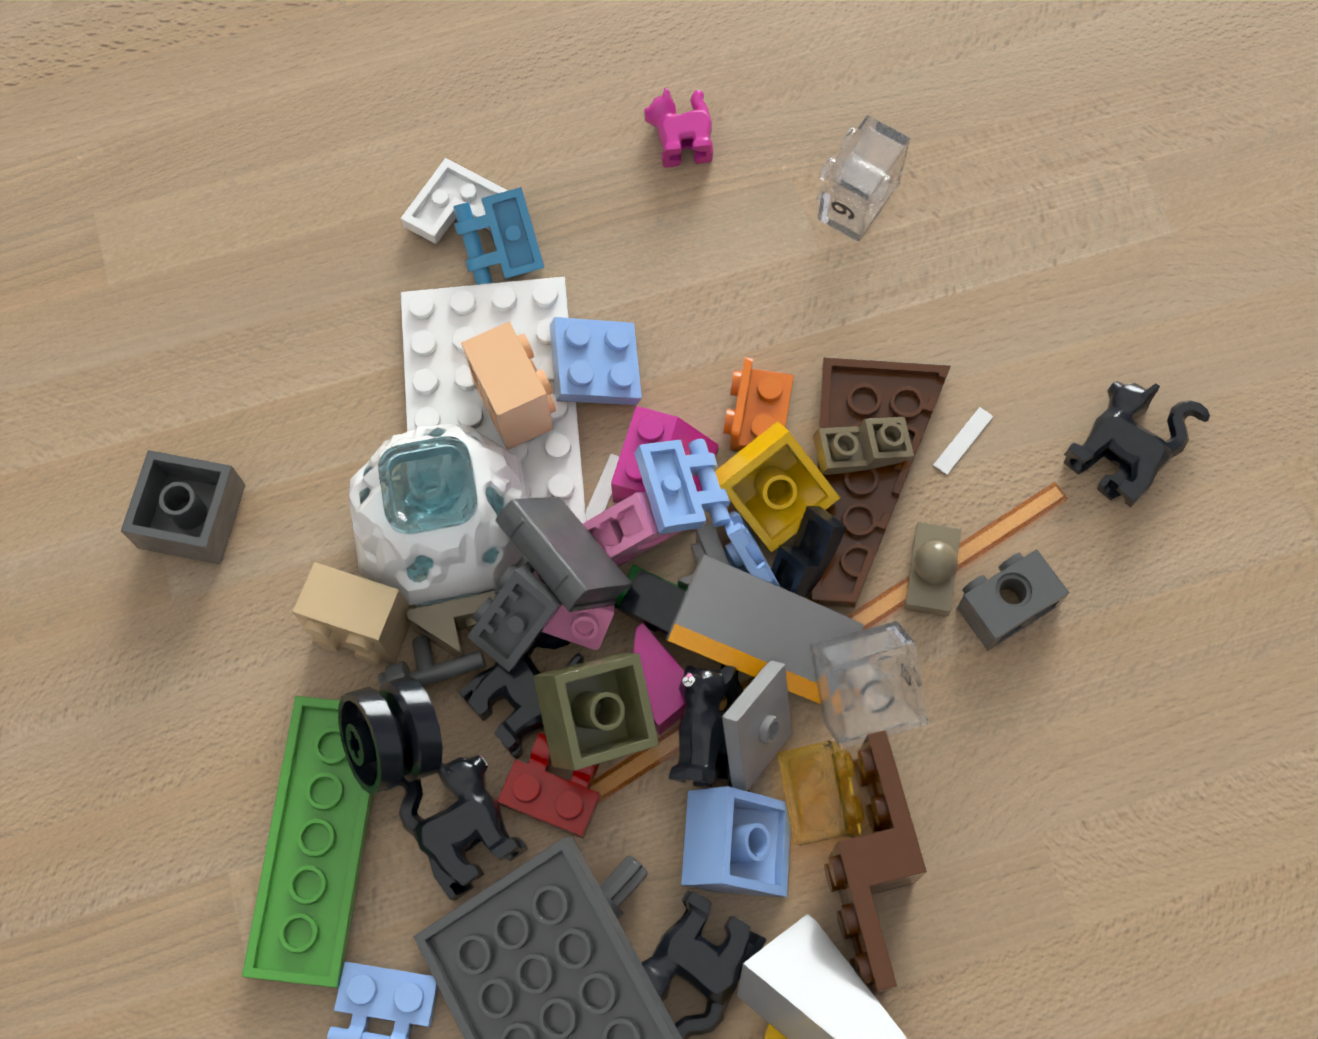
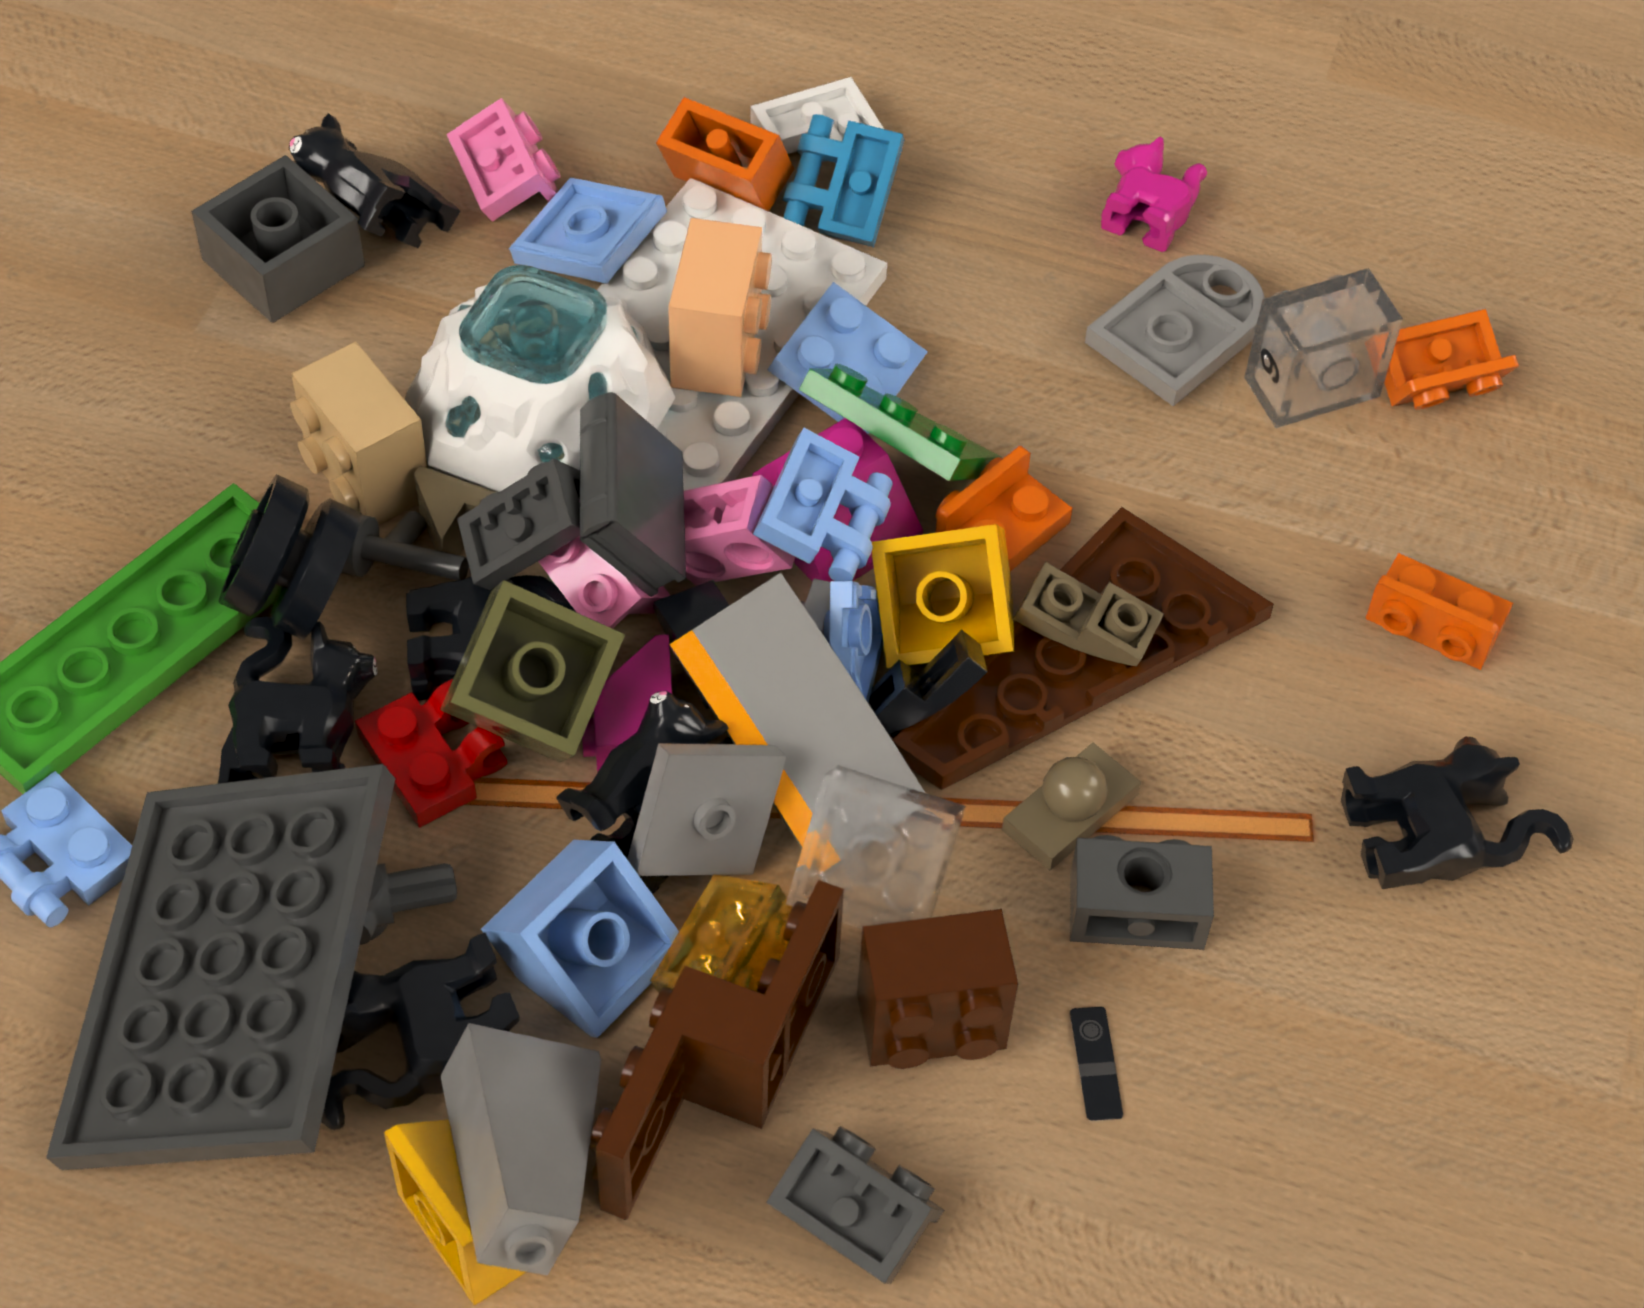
camera: 30 degrees right, 15 degrees down
(213, 432) = (371, 184): none -> black animal
(275, 354) = (503, 159): none -> bright pink bracket
(368, 370) = (588, 230): none -> light blue plate
(415, 265) = (725, 153): none -> orange brick
(672, 391) = (897, 423): none -> green wing
(762, 211) = (1176, 327): none -> light grey plate
(932, 135) = (1446, 358): none -> orange bracket
(954, 748) = (936, 988): none -> reddish brown brick
(963, 440) = (1230, 702): white sticker -> none
(1004, 895) = (855, 1202): none -> dark grey bracket
(1034, 307) = (1438, 611): none -> orange bracket
(1055, 716) = (1096, 1064): none -> black sticker

